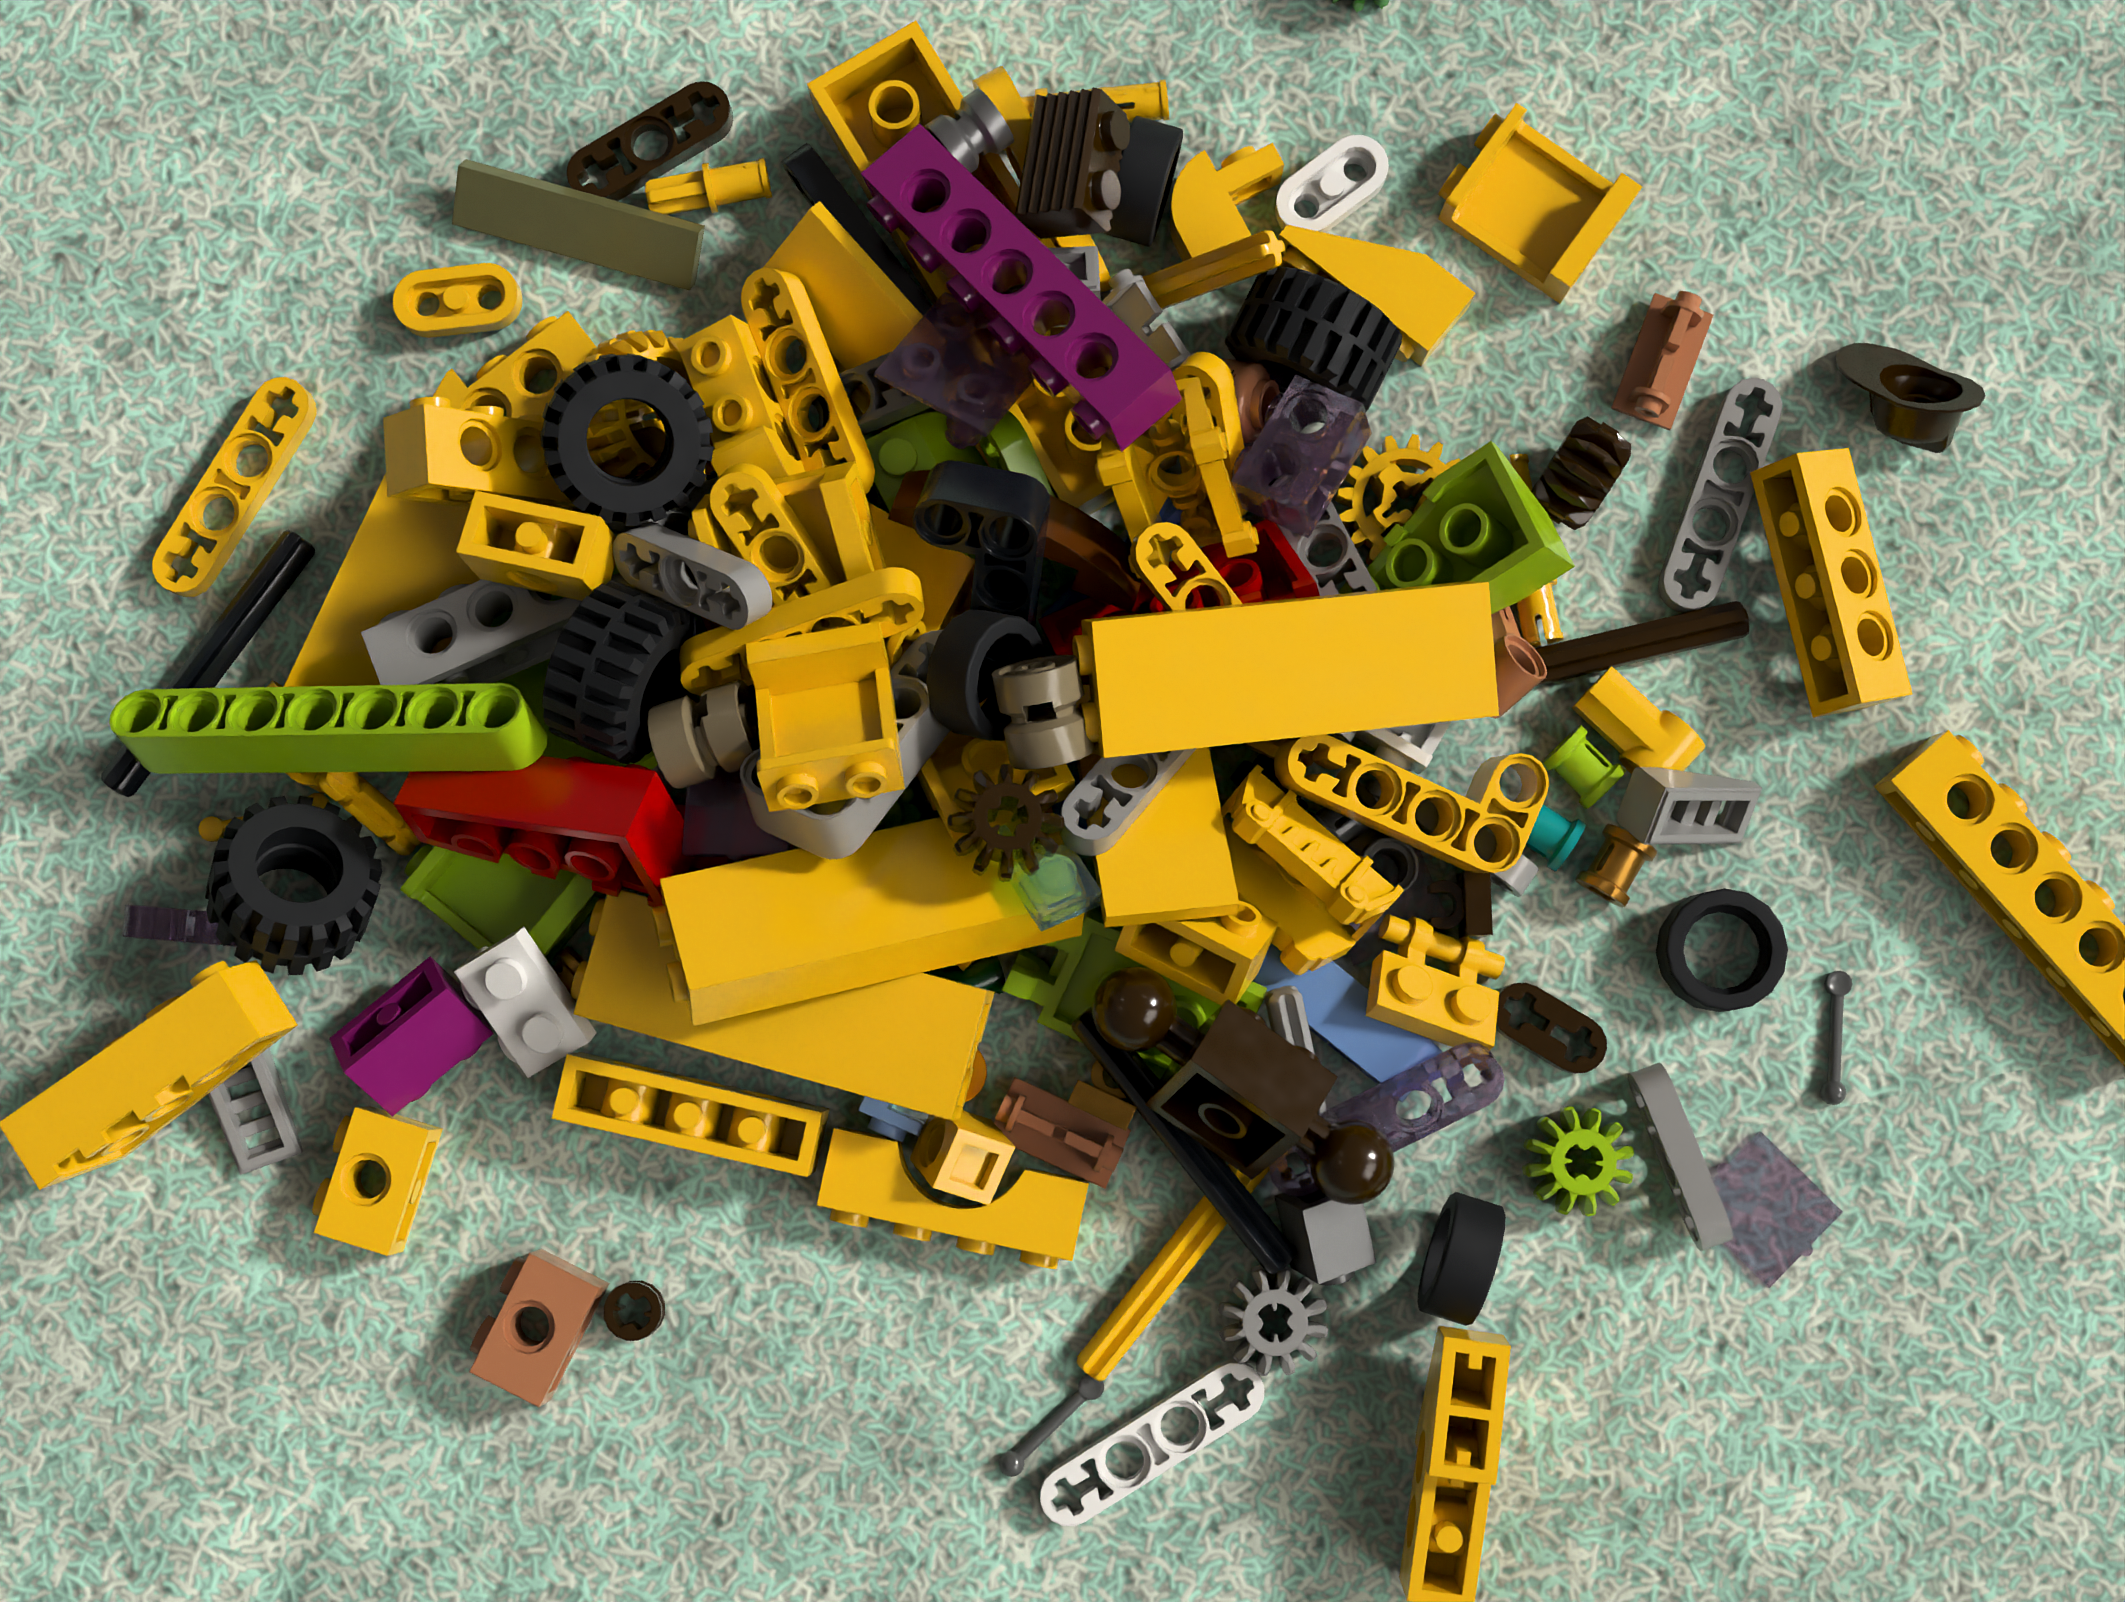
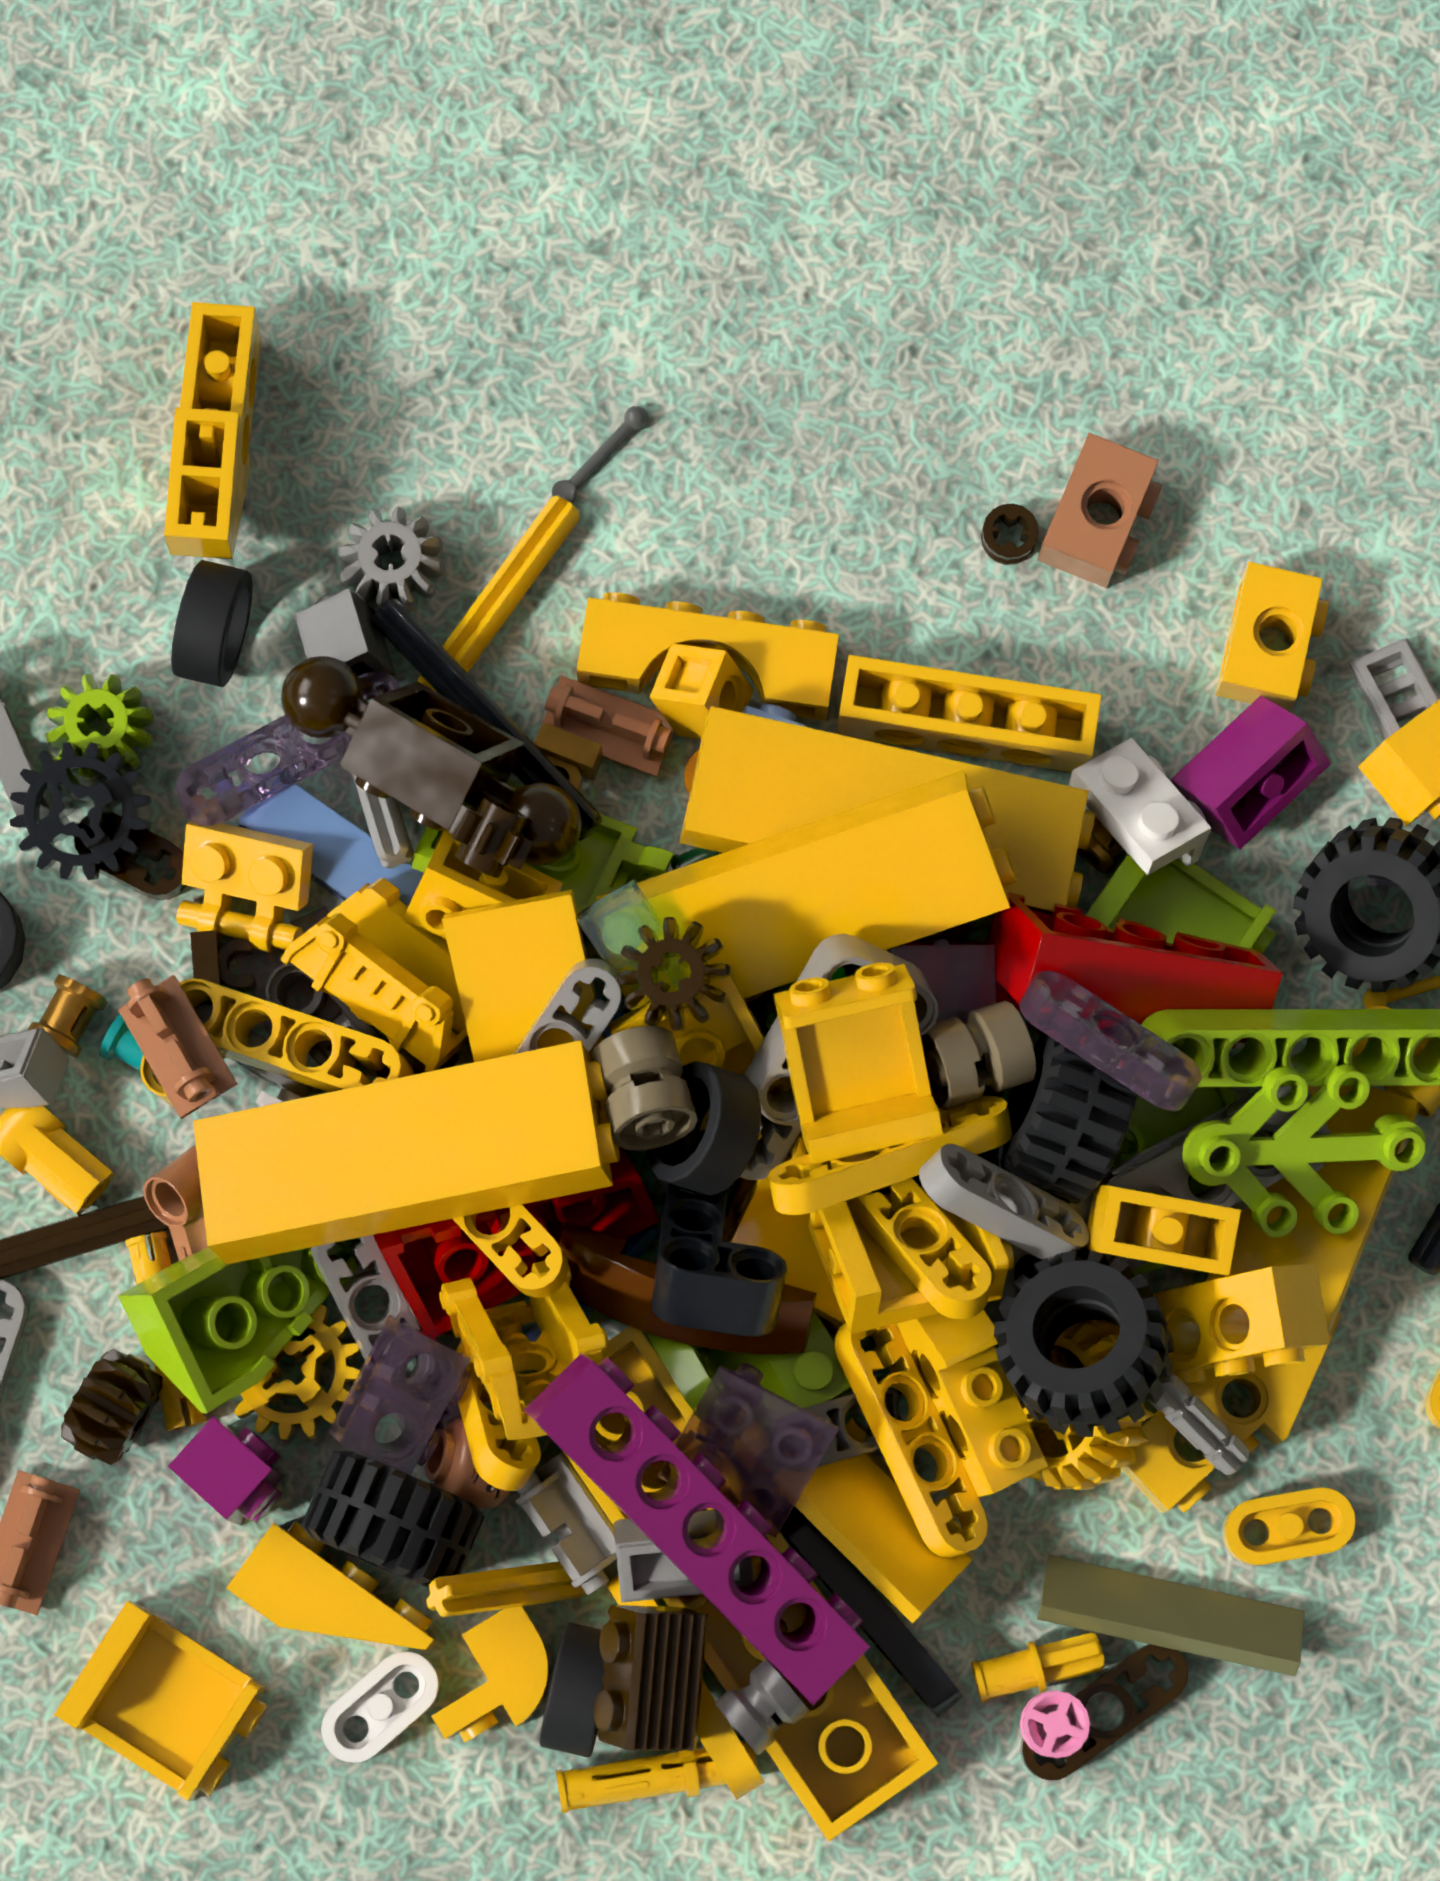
camera: 170 degrees right, 5 degrees down
(369, 808) = (1314, 988): yellow axle -> none
(472, 626) = (1296, 1146): none -> lime plant
(516, 681) = (1110, 1040): none -> beam
(521, 371) = (1201, 1426): none -> light grey axle
(689, 110) = (1068, 1719): none -> bright pink wheel
(1157, 1450) = (495, 435): white beam -> none
(1184, 987) = (491, 837): none -> dark brown gear
(1468, 398) = (231, 1471): none -> magenta brick
(1512, 799) = (176, 1044): none -> nougat hinge
(1583, 767) = (102, 1112): lime bush -> none
(1612, 1088) = (56, 825): none -> black gear

